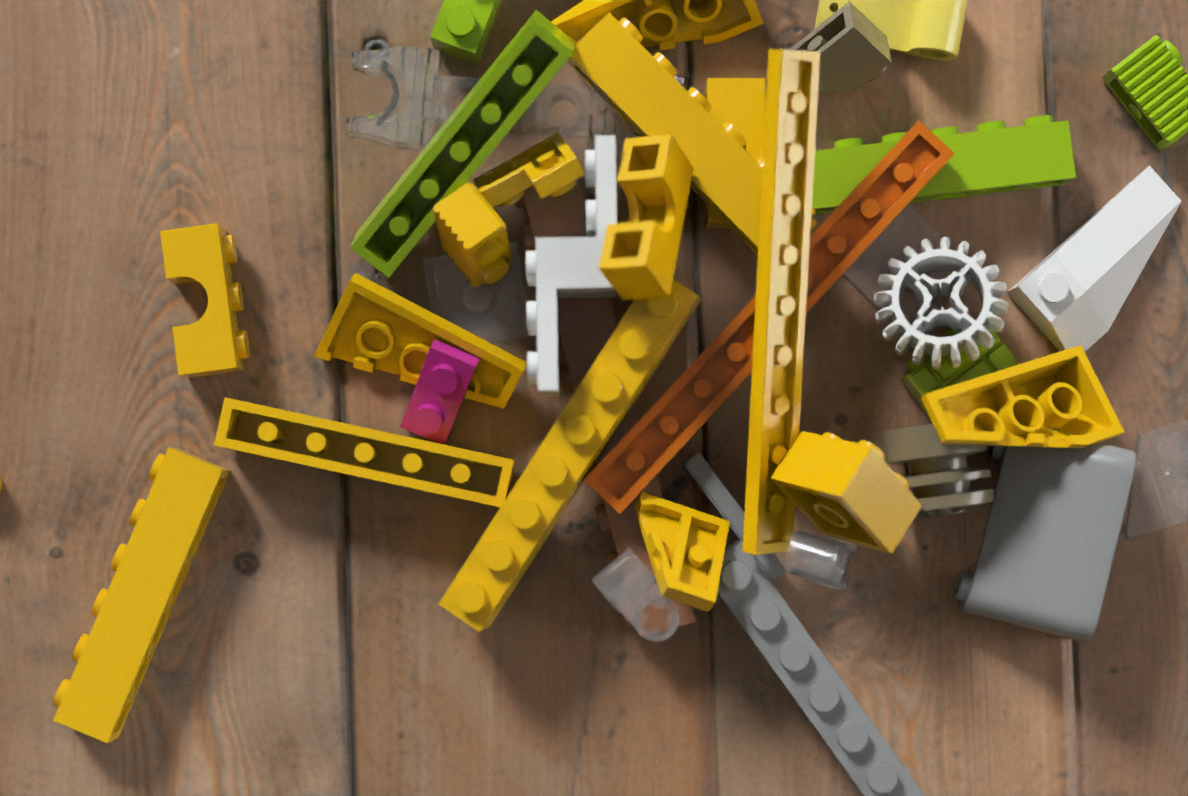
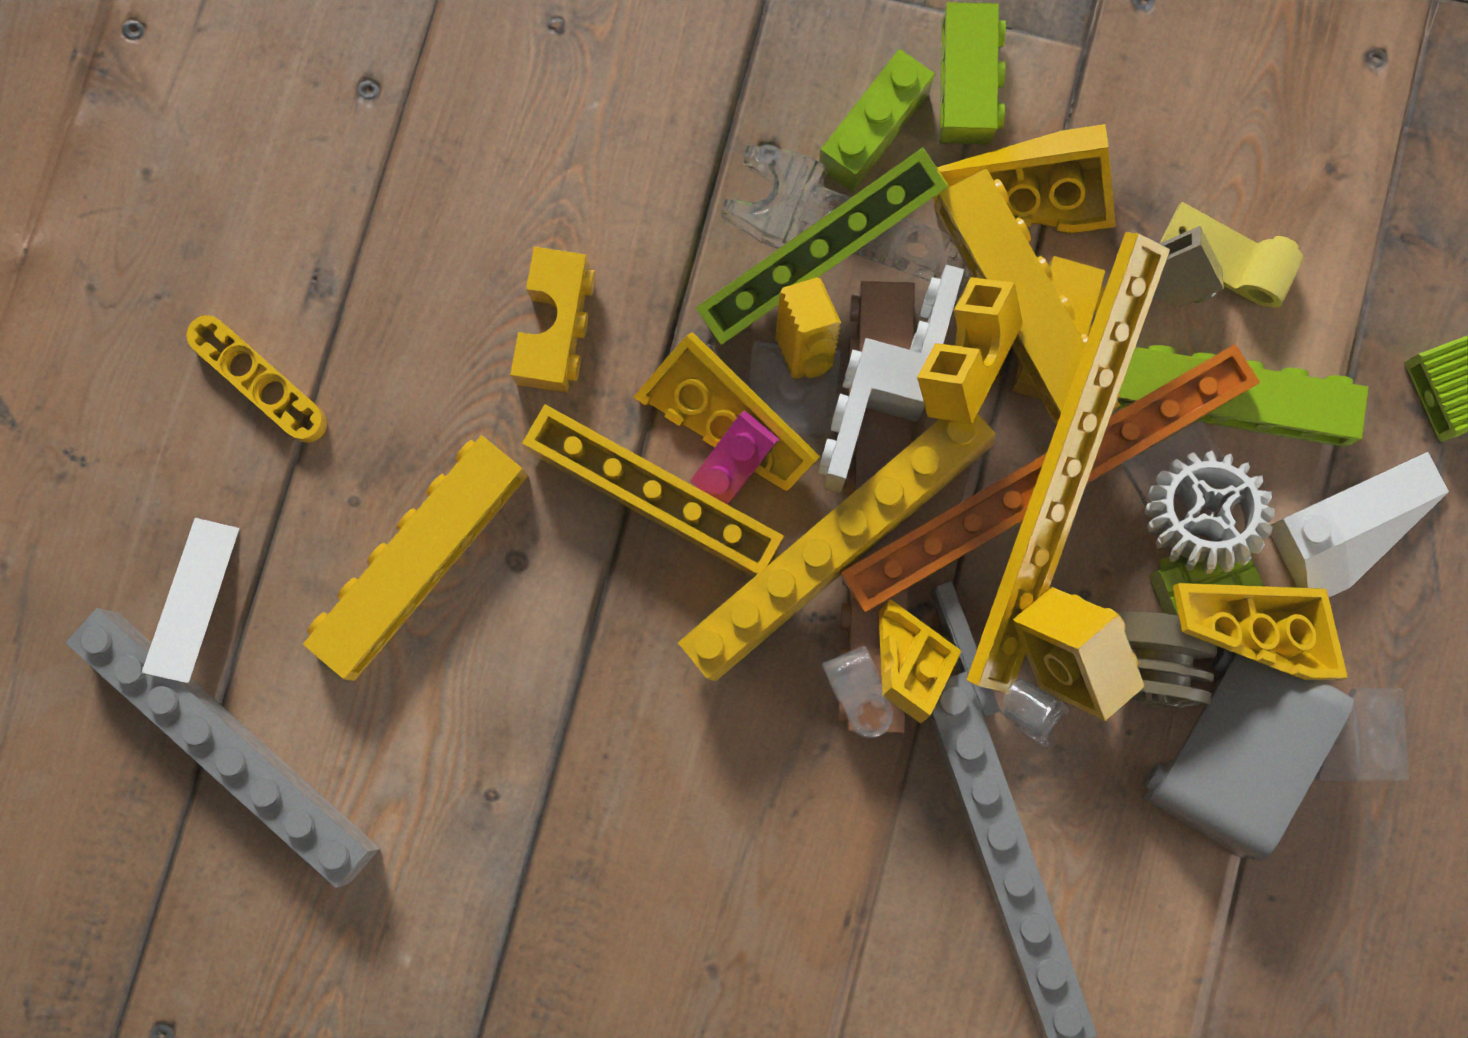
camera: 25 degrees right, 5 degrees down
(546, 166) = (890, 286): yellow plate -> none

